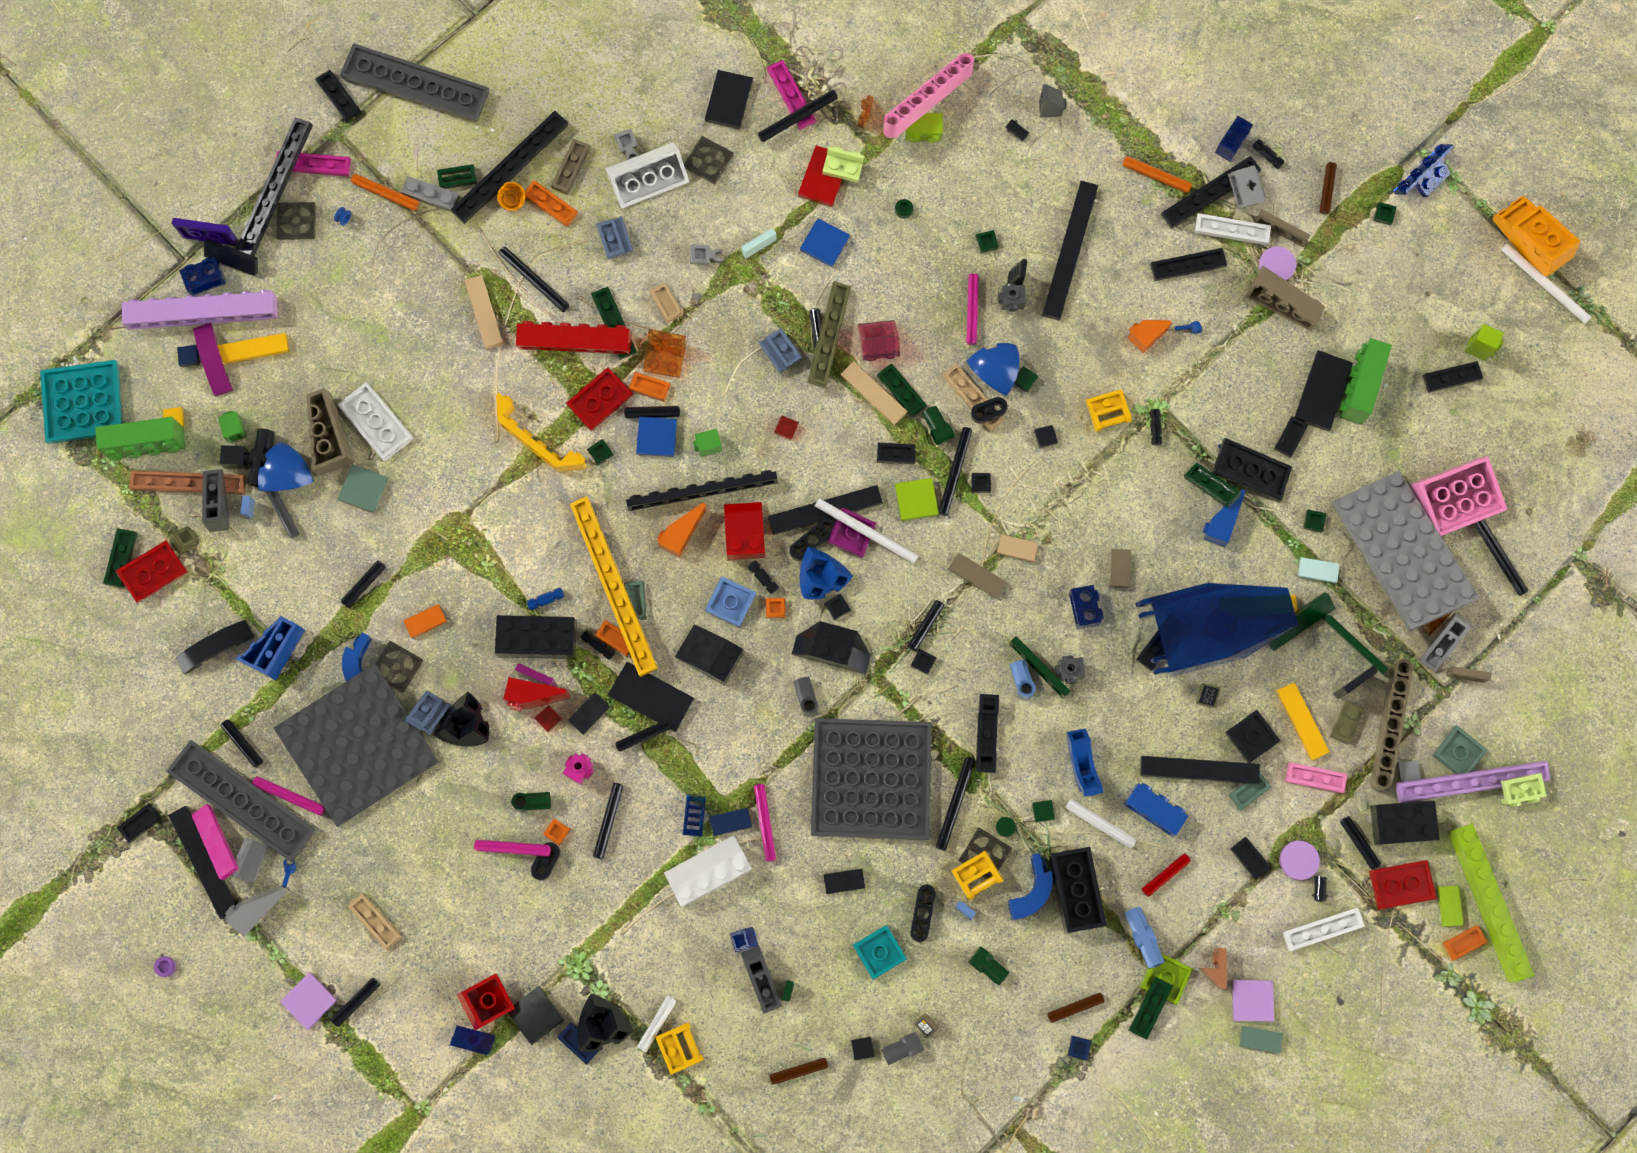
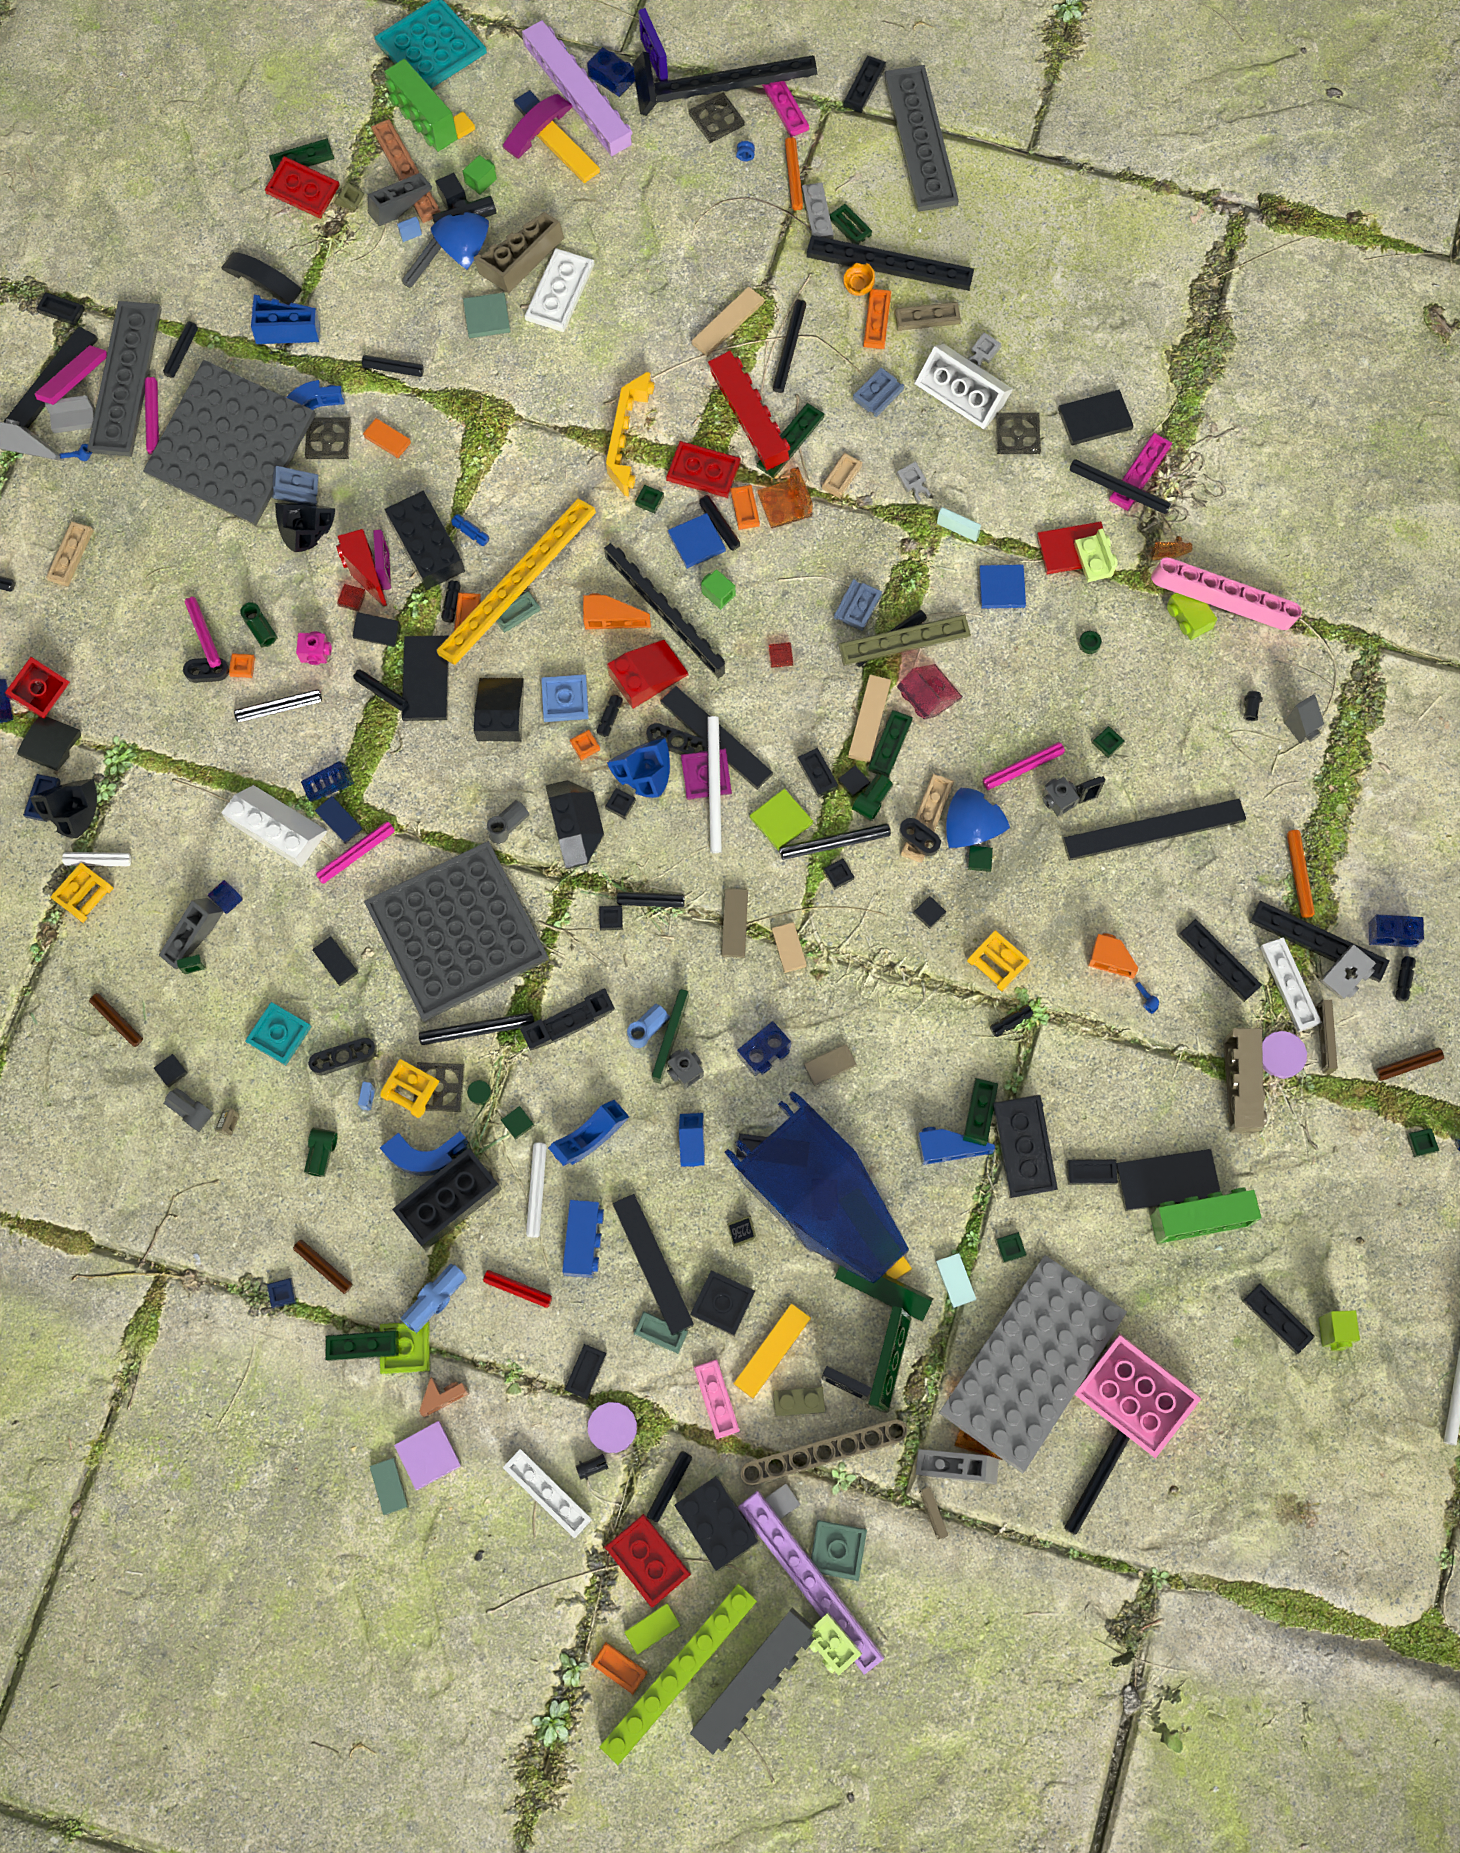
camera: 65 degrees right, 5 degrees down
(916, 432) = (853, 781): none -> black tile
(1124, 693) = (691, 1139): none -> blue slope
(1522, 855) = (752, 1681): none -> dark grey brick

